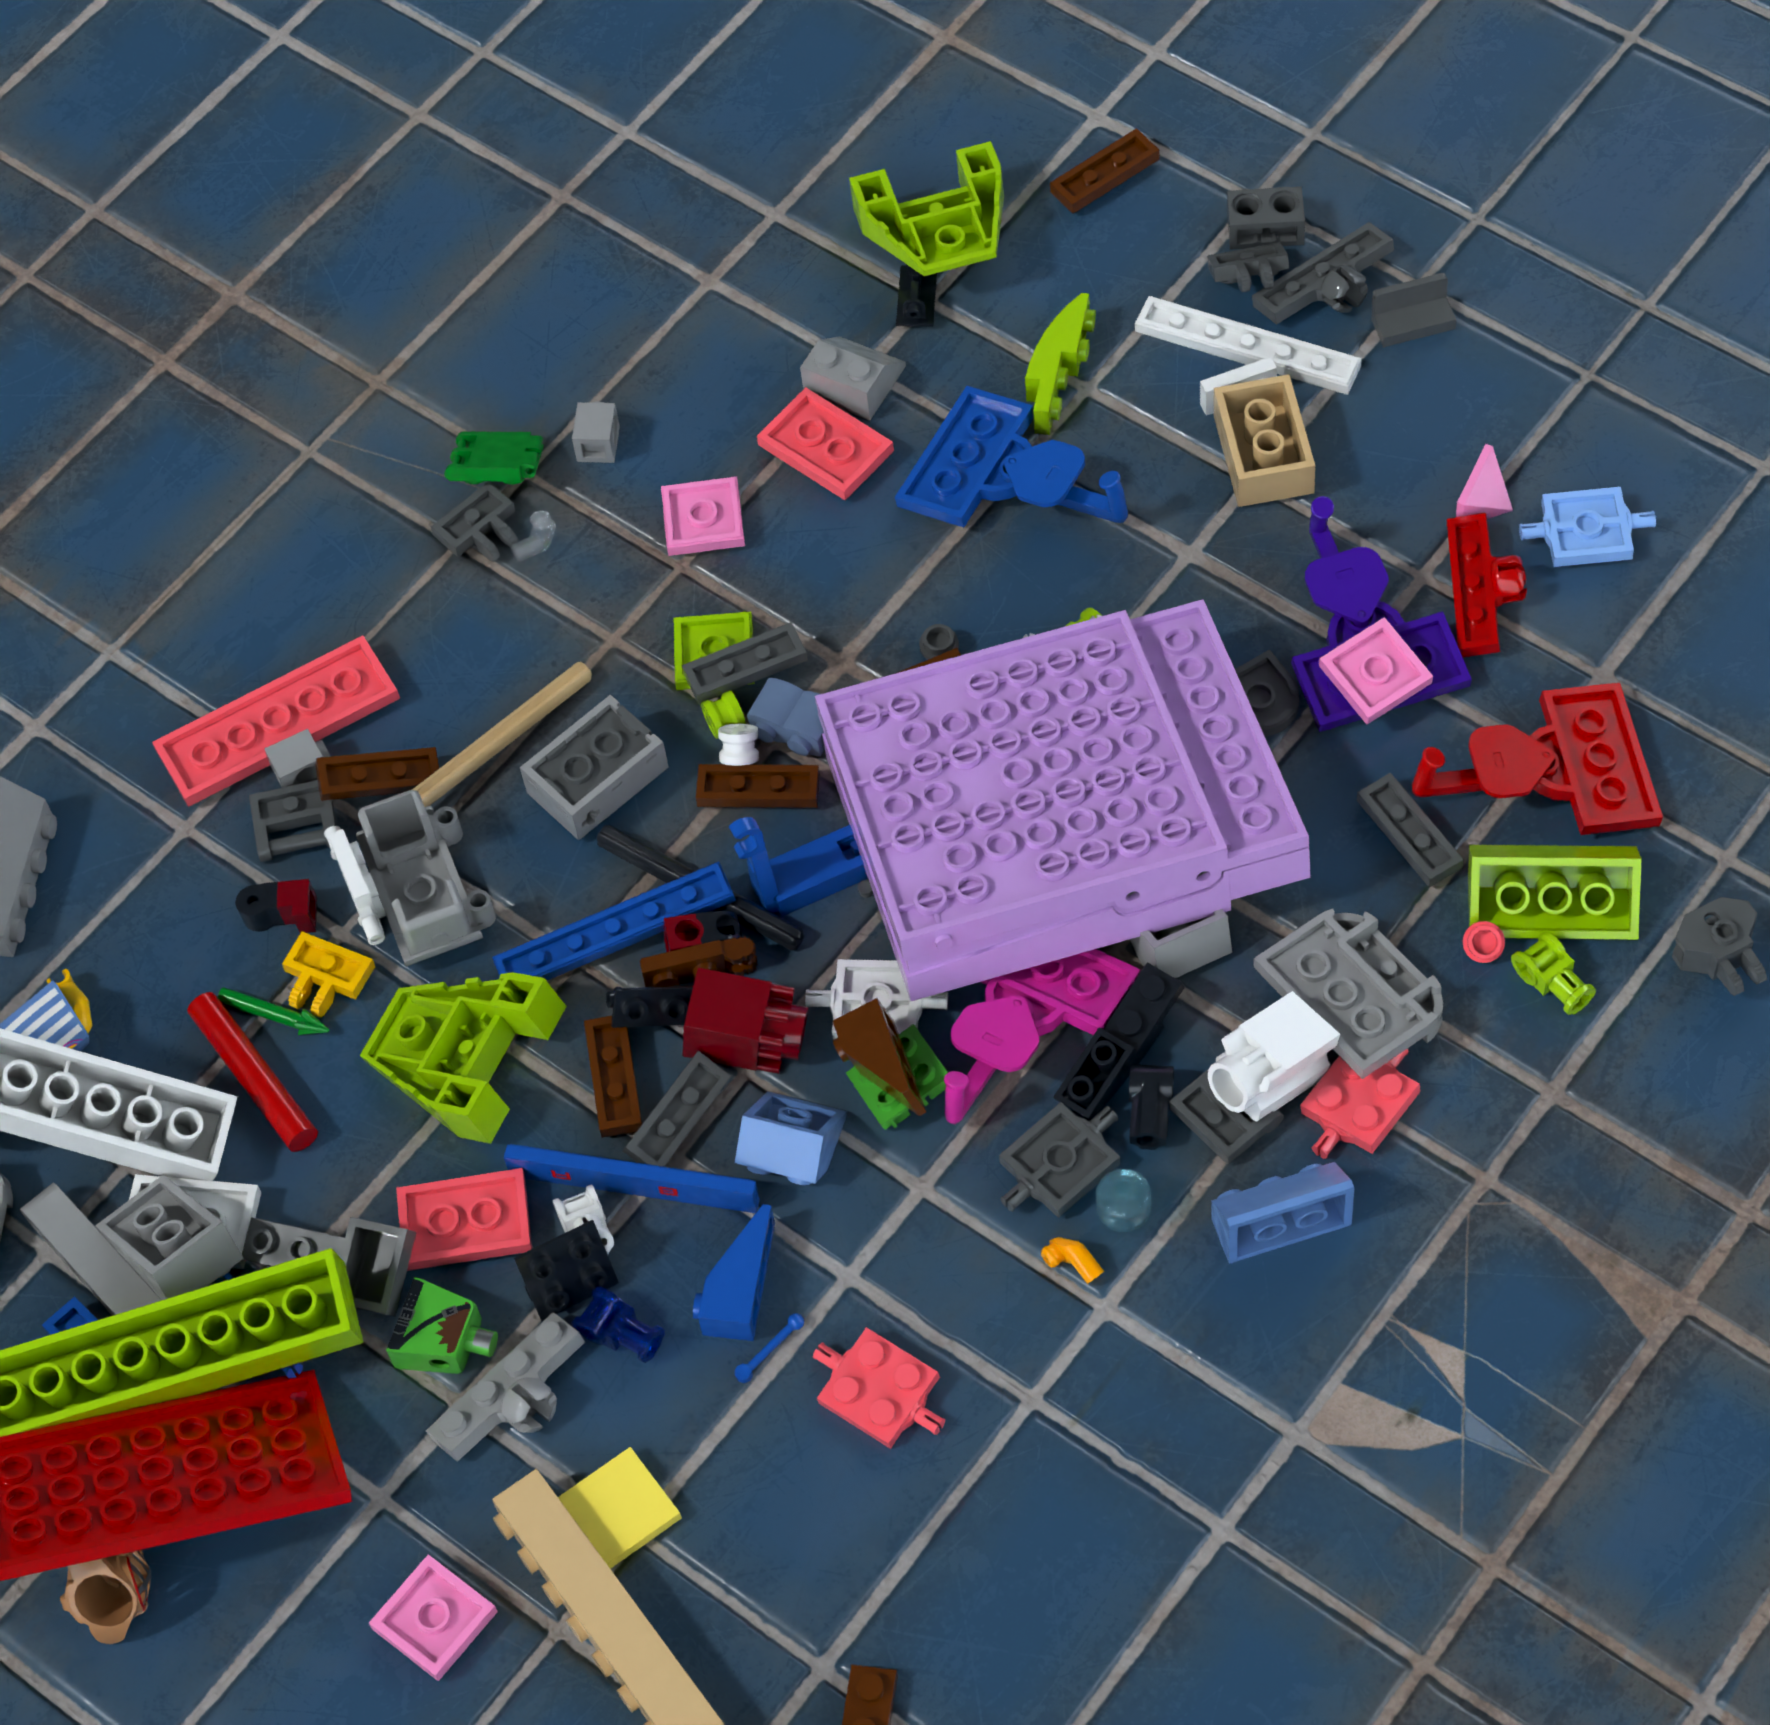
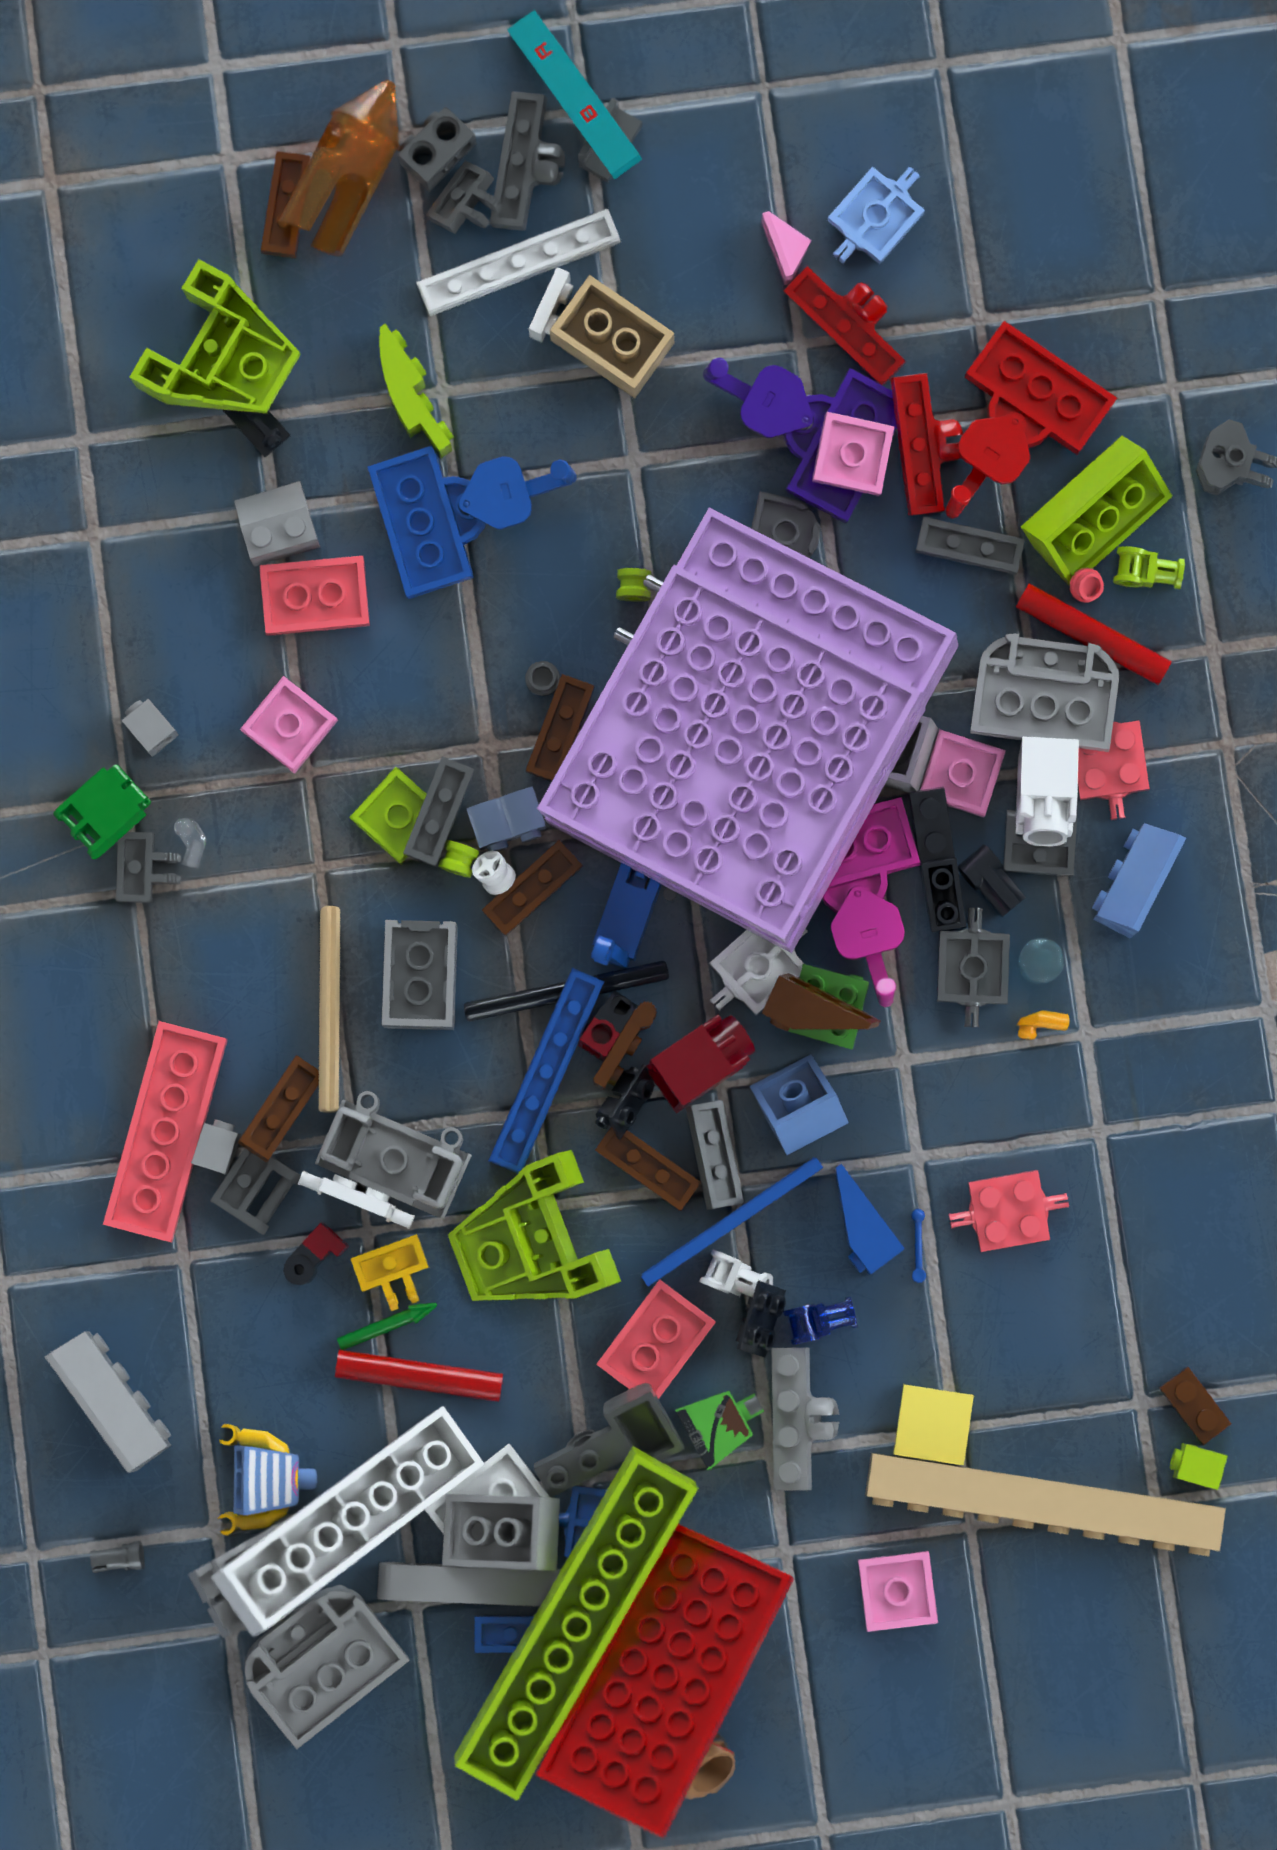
camera: 50 degrees left, 25 degrees up
(1194, 166) = (352, 158): none -> clear orange piece
(1216, 997) = (965, 771): none -> bright pink plate
(1415, 251) = (574, 94): none -> teal tile
(1448, 712) = (922, 443): none -> red plate
(1458, 1003) = (1089, 630): none -> red piece

